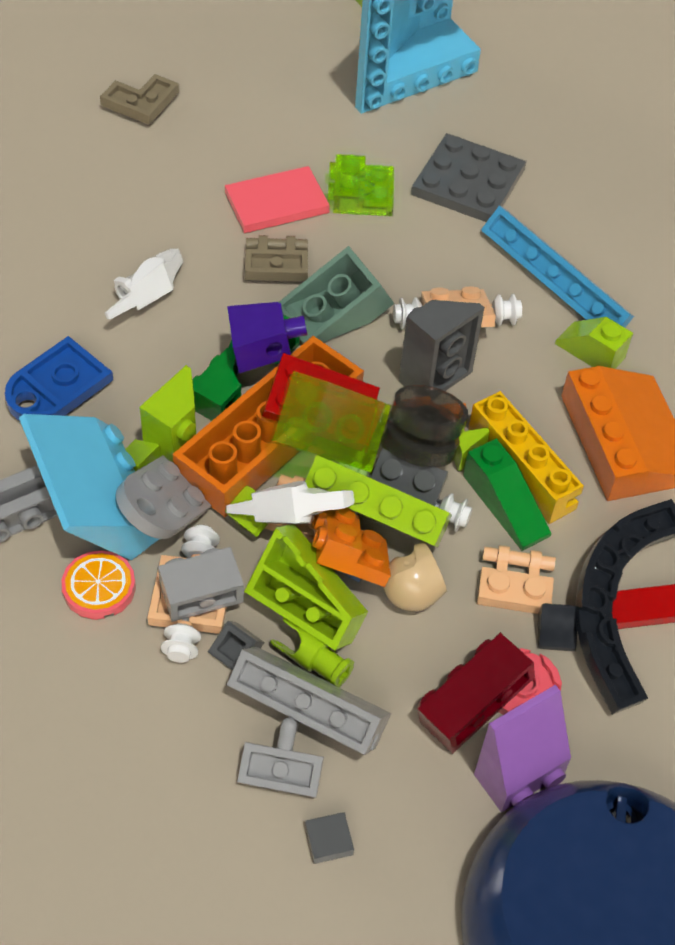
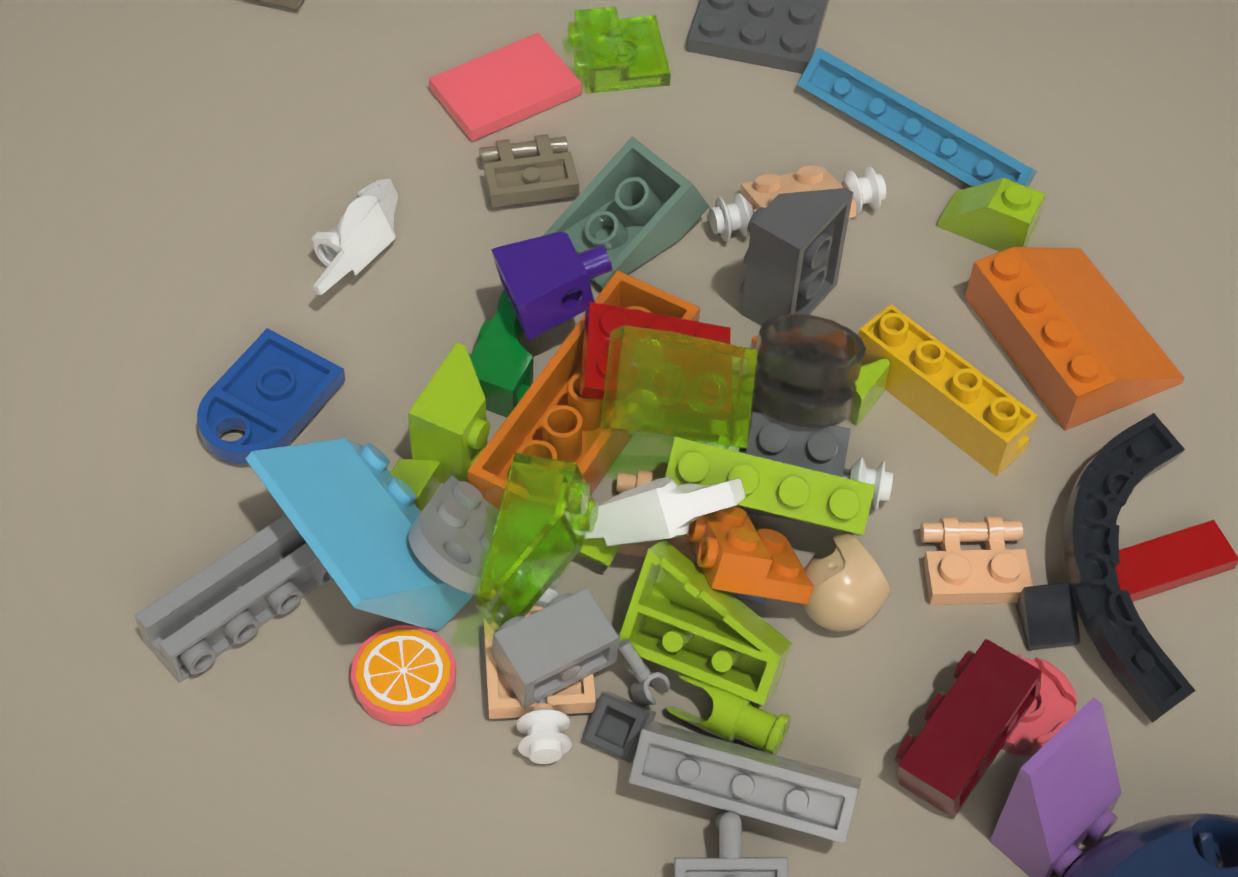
camera: 10 degrees left, 0 degrees up
(200, 505) = (535, 535): none -> clear neon green slope
(259, 614) = (643, 675): none -> light grey hand
(505, 493) = (931, 444): green slope -> none

